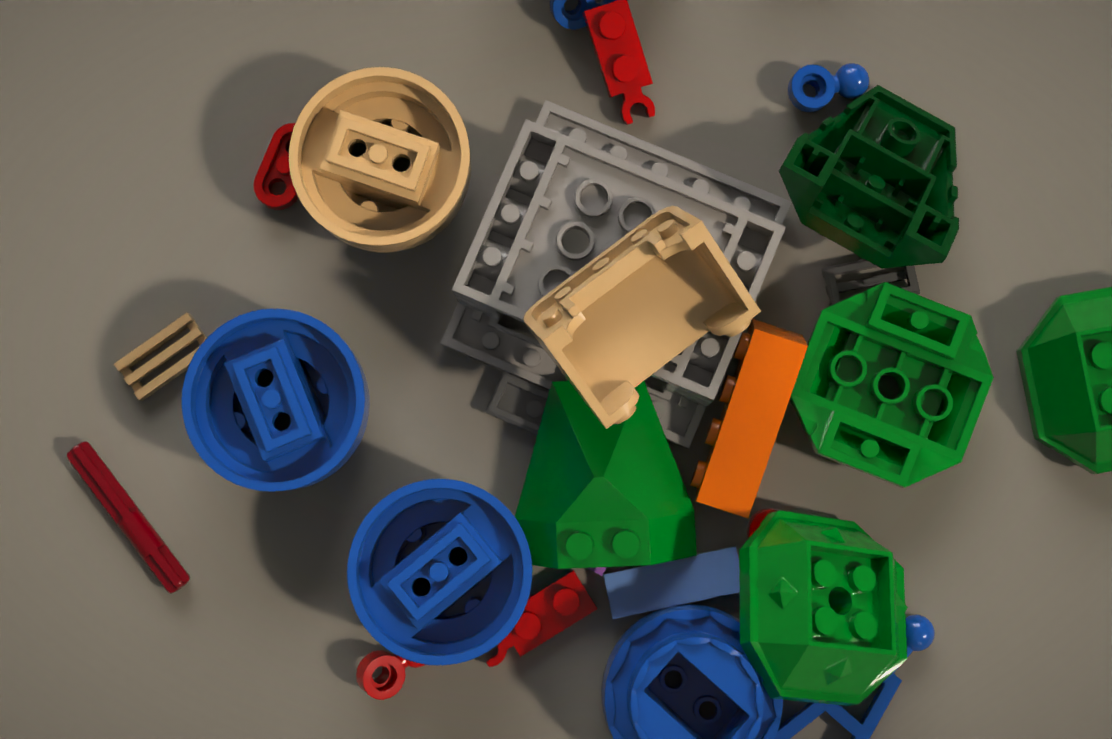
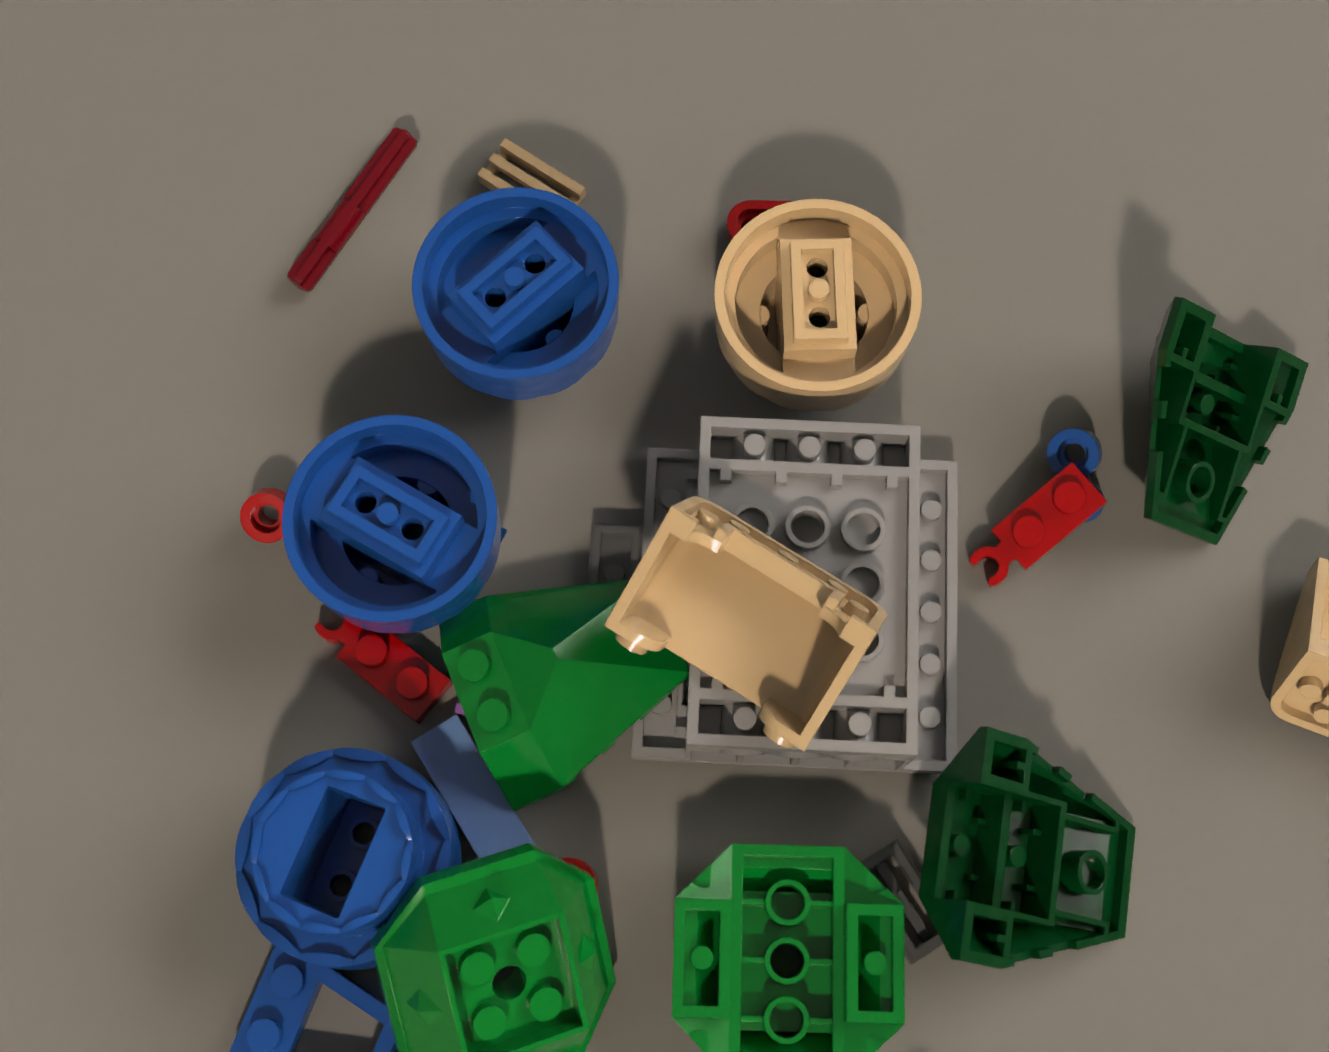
camera: 65 degrees right, 10 degrees down
(750, 417) = (690, 809): orange wedge -> none
(849, 82) = (1123, 790): blue plate -> none

